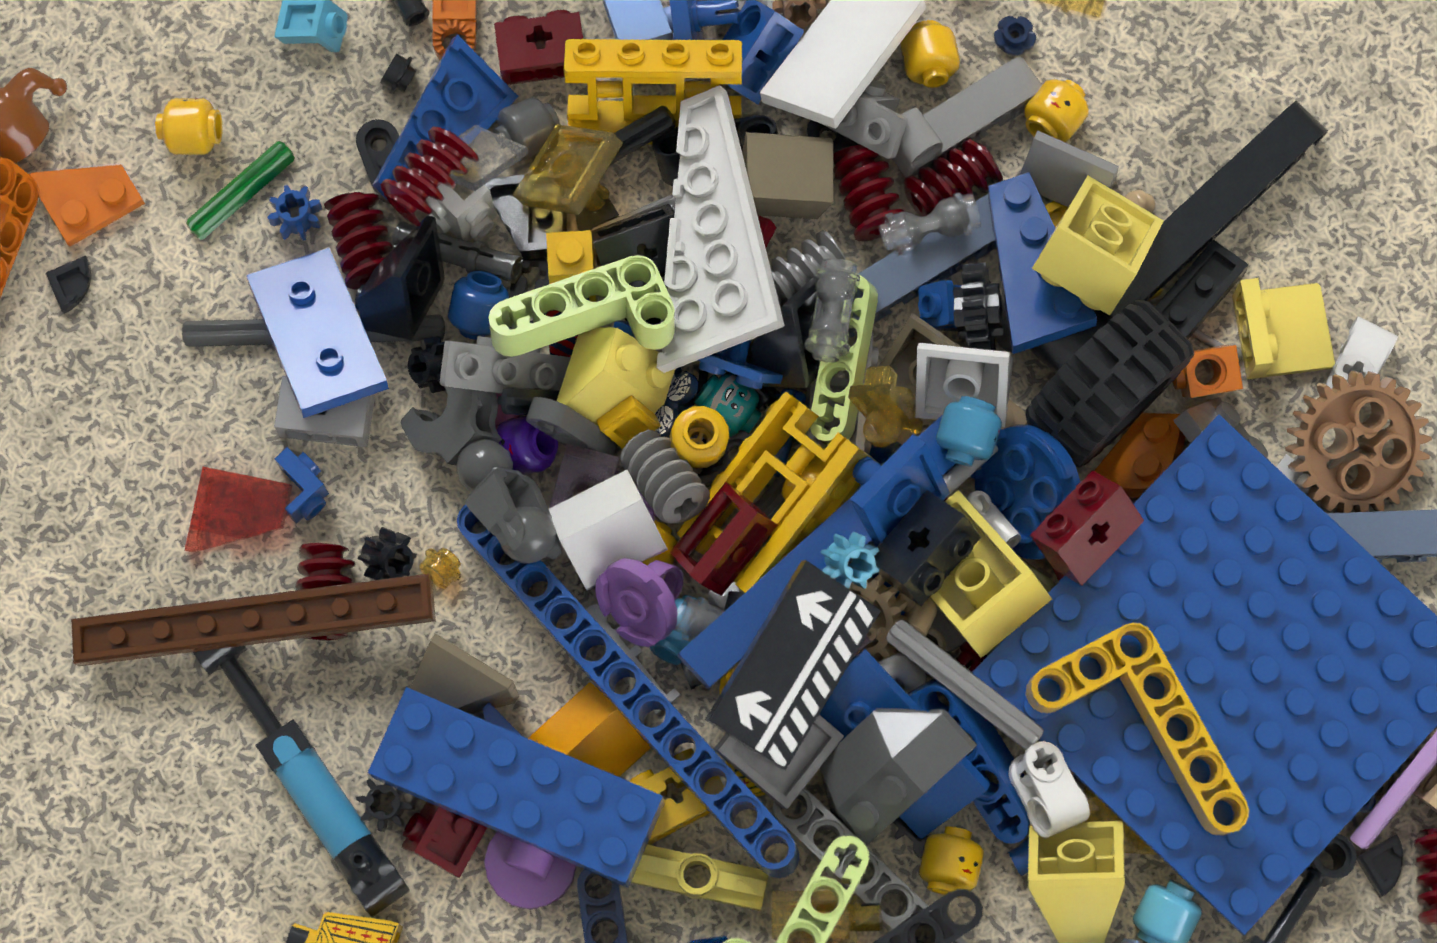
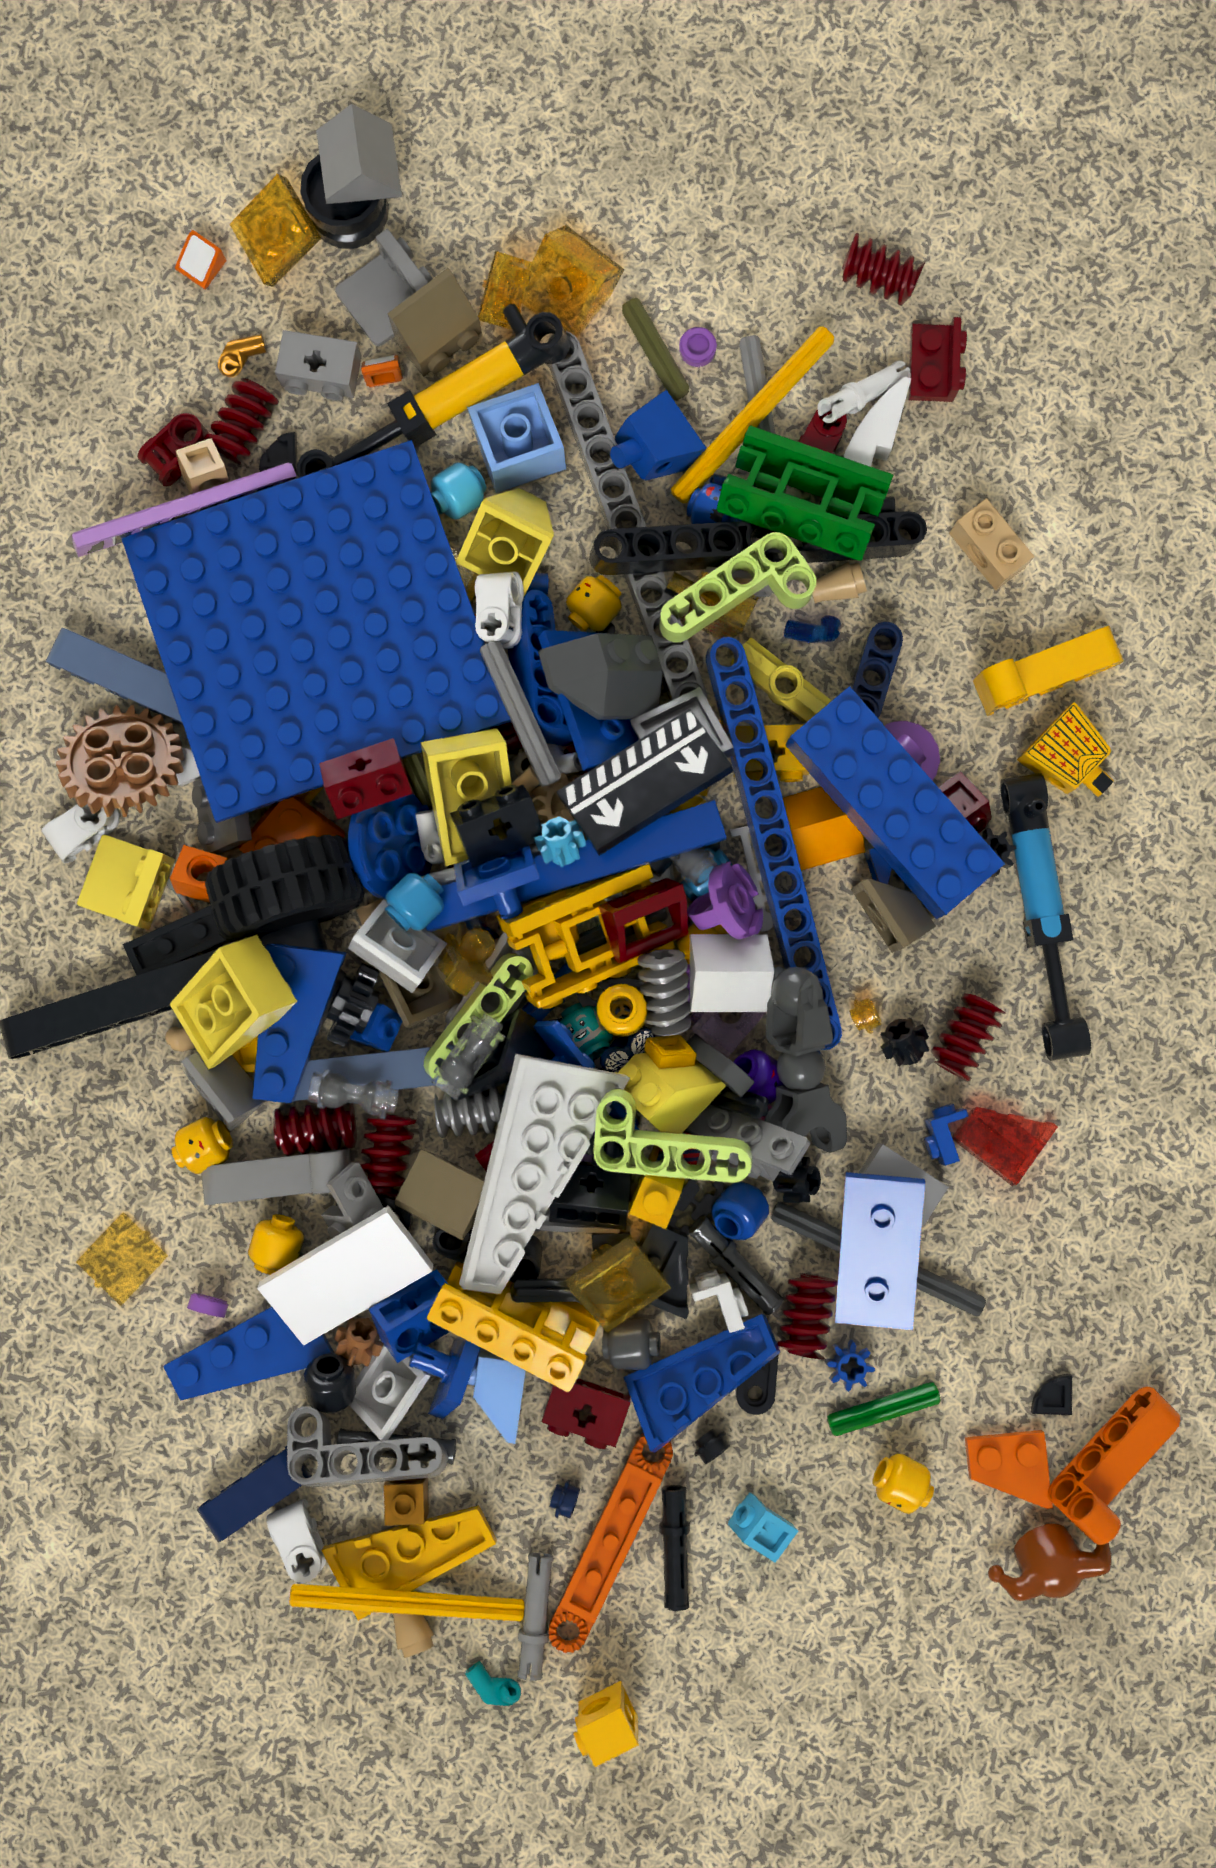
camera: 150 degrees left, 10 degrees up
(253, 620) = (1034, 1035): reddish brown tile -> none
(403, 284) = (793, 1254): black slope -> none
(427, 172) = (738, 1326): dark red piece -> none
(495, 155) = (688, 1331): clear piece -> none
(1017, 45) = (208, 1224): dark blue plate -> none
(1154, 714) = (389, 615): yellow beam -> none

